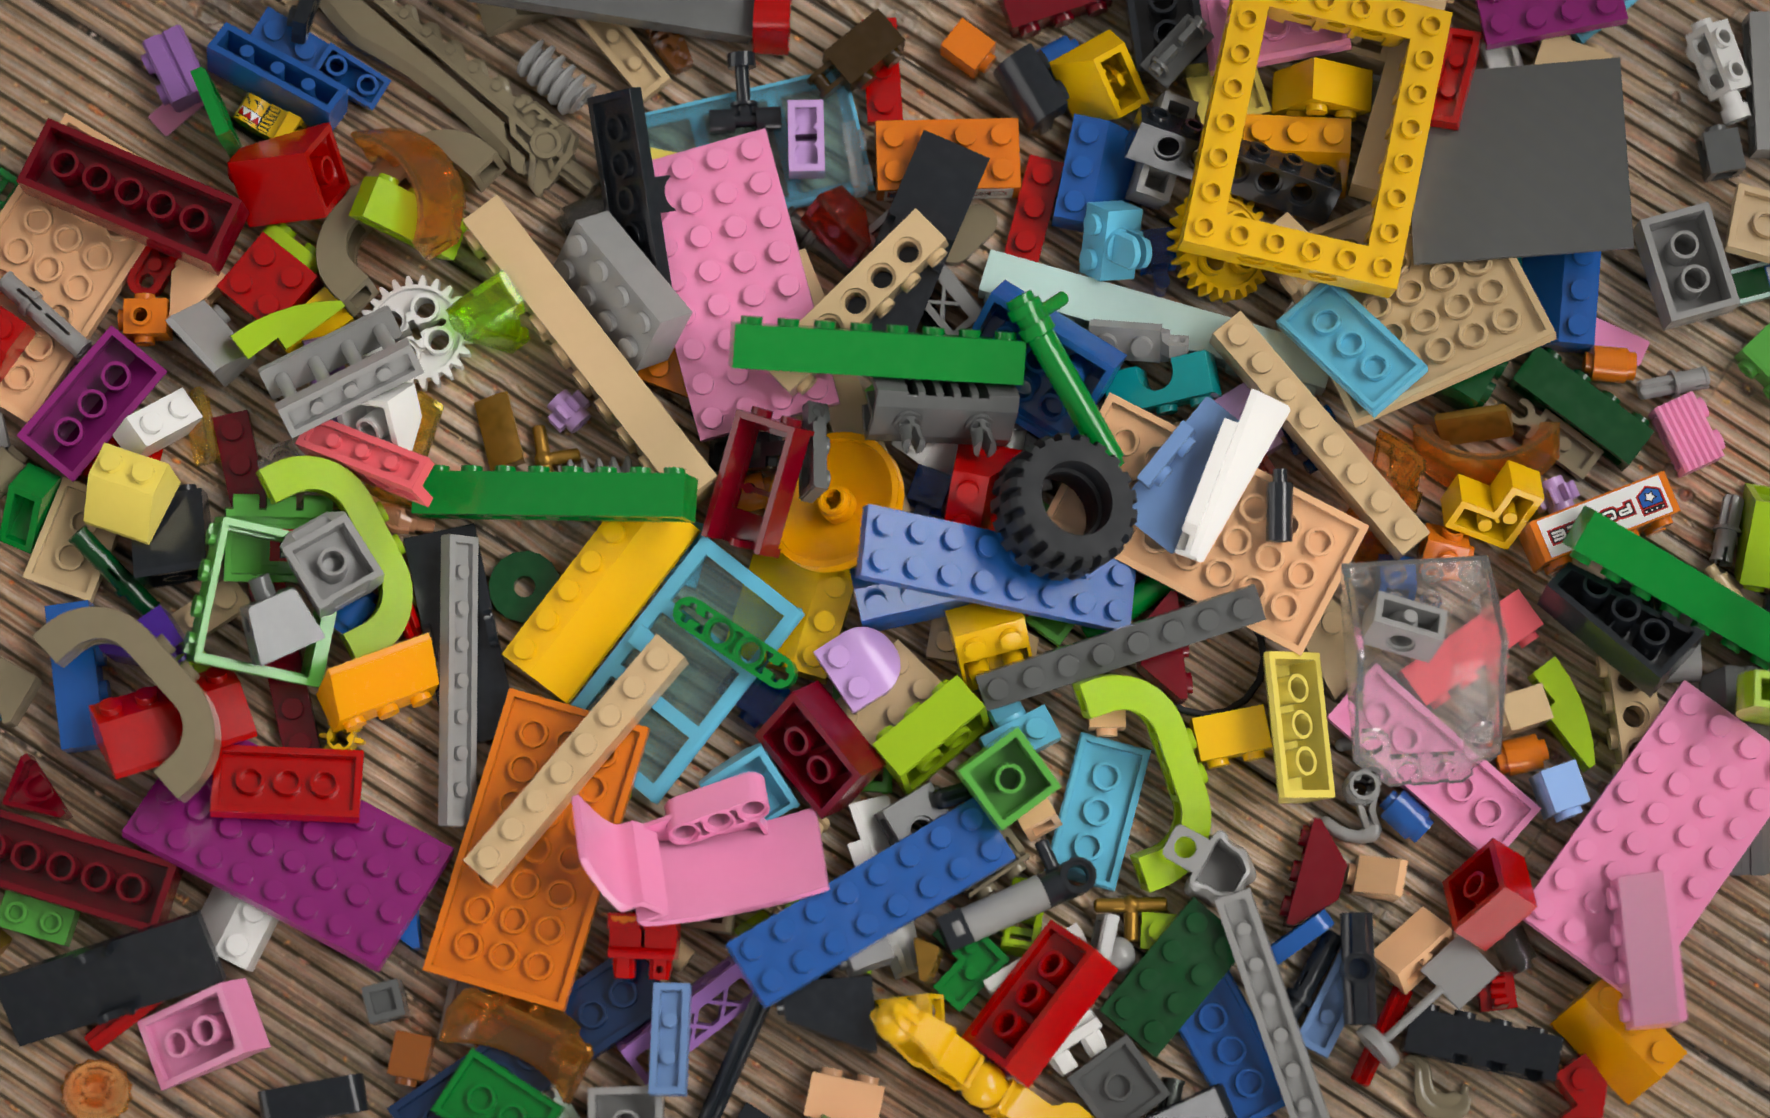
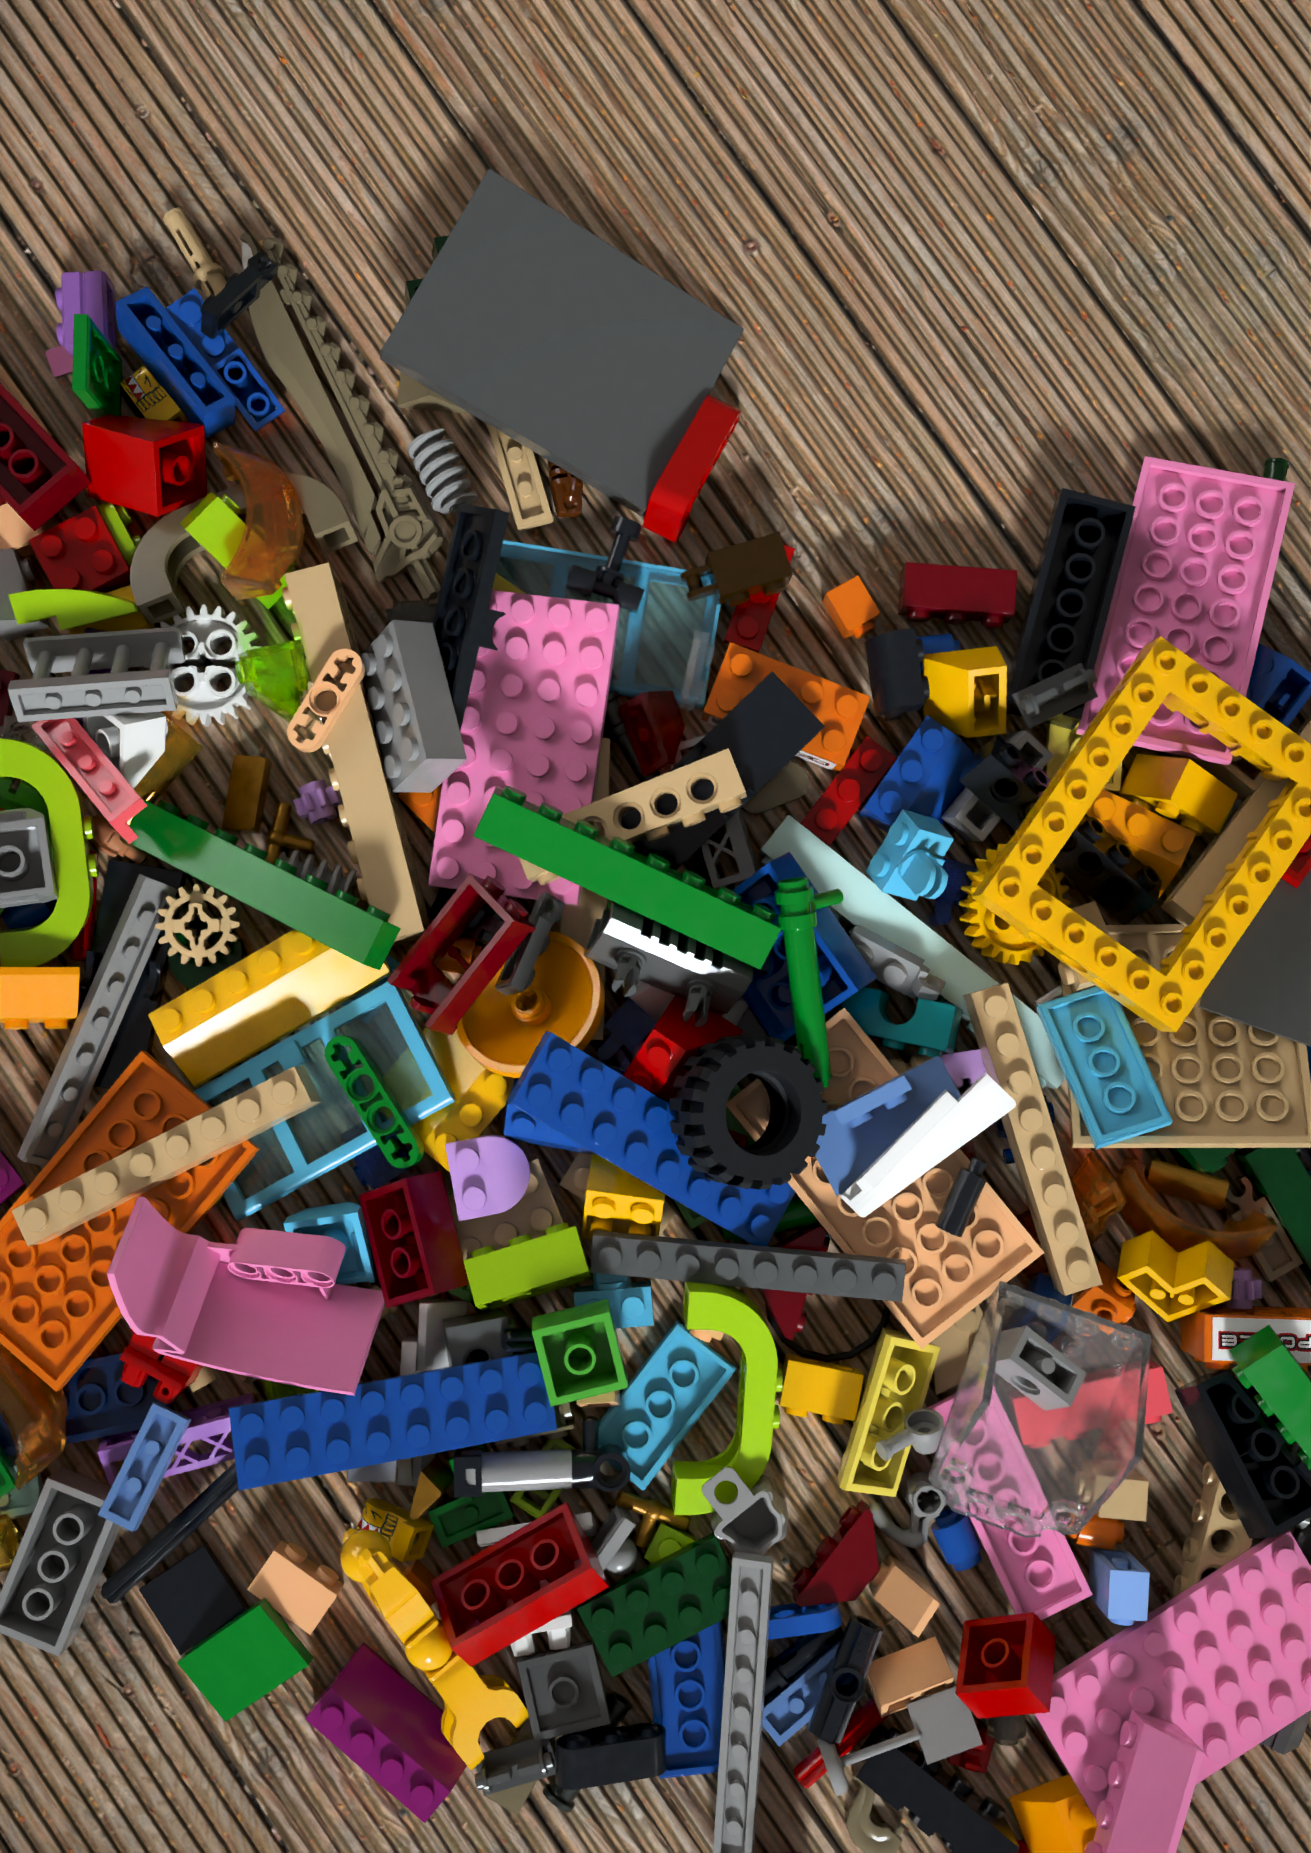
camera: 20 degrees right, 5 degrees up
(526, 552) = (182, 925): none -> tan gear
(561, 288) = (349, 680): none -> light nougat beam
(806, 139) = (654, 631): lavender brick -> none
(835, 1010) = (319, 1510): black slope -> none
(1330, 726) = (921, 1430): none -> light grey bar
(1570, 719) = (1160, 1526): lime slope -> none

